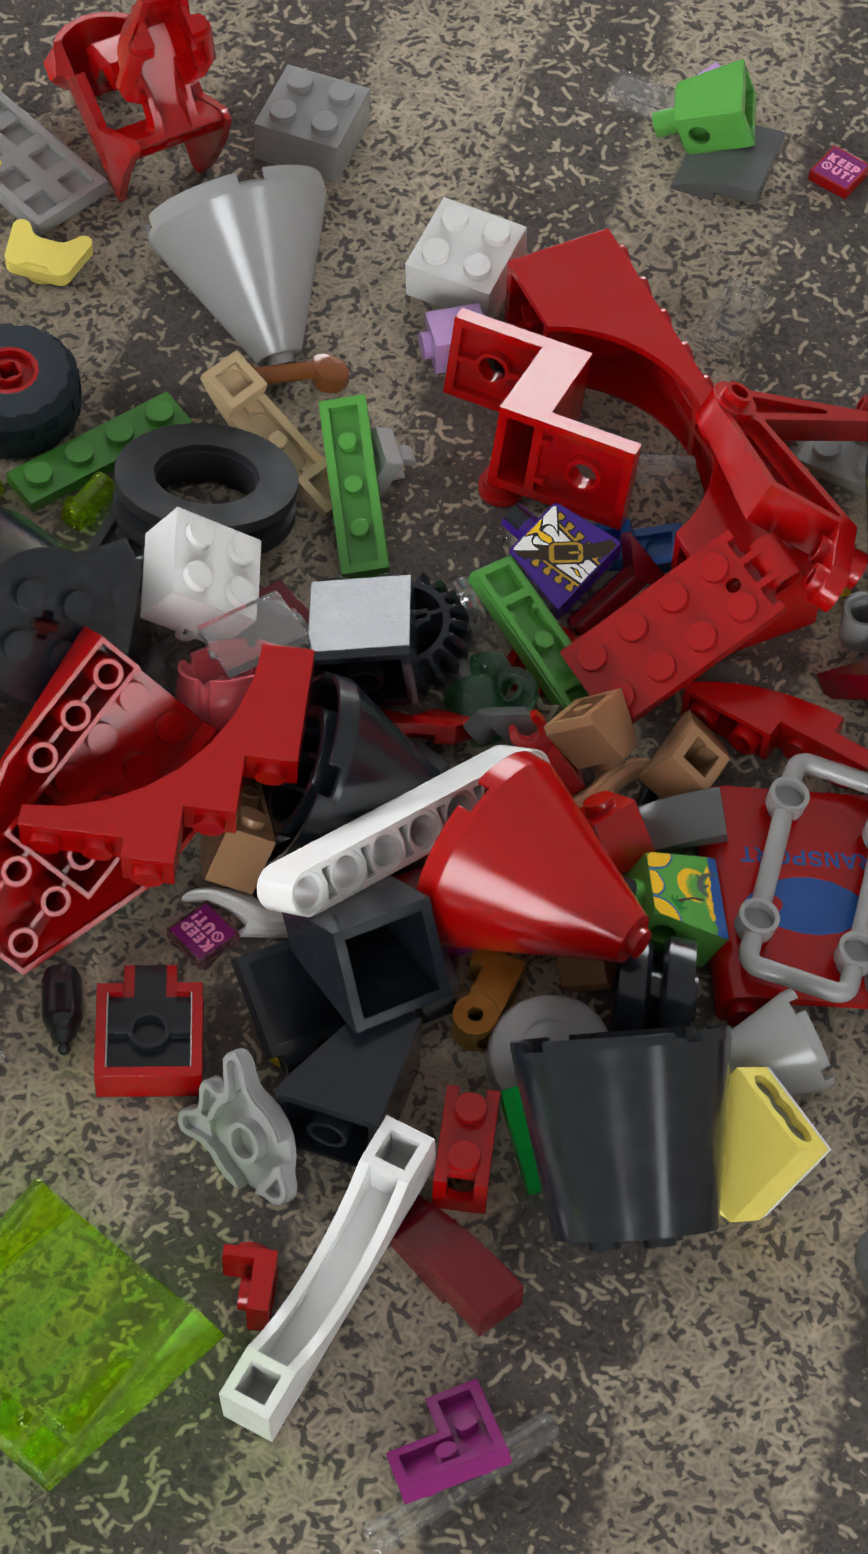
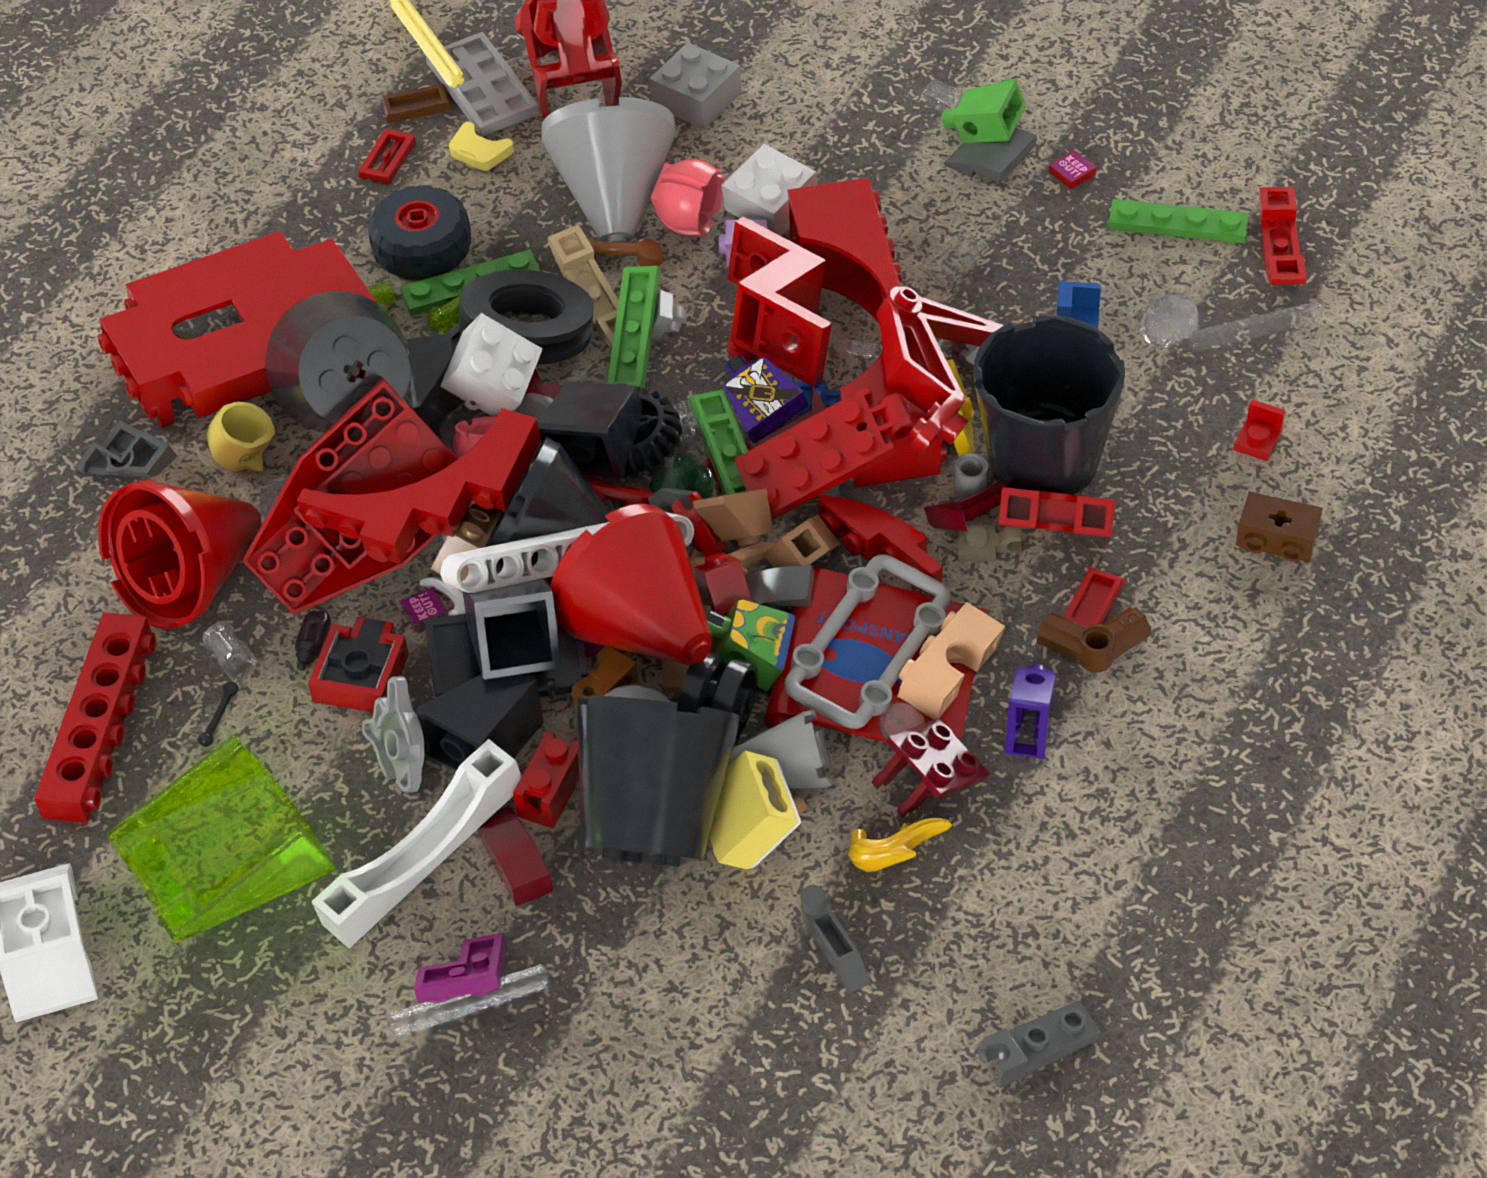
camera: 20 degrees right, 5 degrees down
(240, 633) = (520, 399): clear piece -> none
(258, 1282) = (375, 838): red bracket -> none
(362, 286) = (688, 196): none -> coral piece

